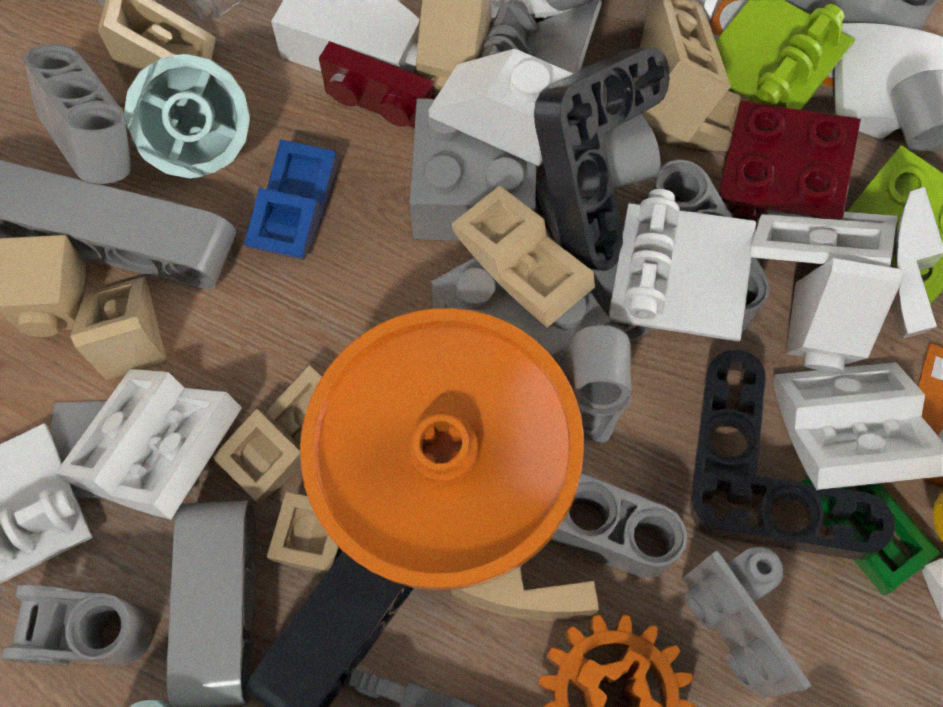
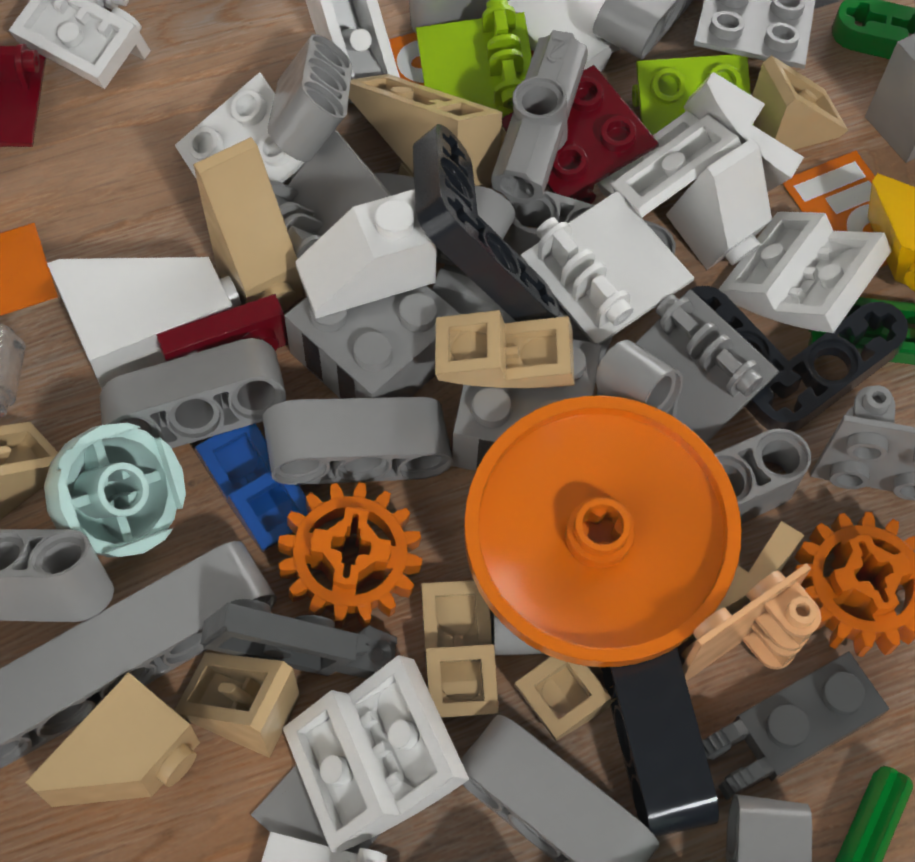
camera: 50 degrees left, 5 degrees down
(191, 326) = (304, 643): none -> dark grey hinge
(266, 314) = (325, 549): none -> orange gear
(314, 105) = (197, 393): none -> light grey beam
(374, 227) = (356, 440): none -> light grey beam
(502, 629) = (771, 625): none -> light nougat hinge
(677, 412) = (715, 361): none -> light grey hinge
(760, 115) = (539, 117): none -> light grey piece

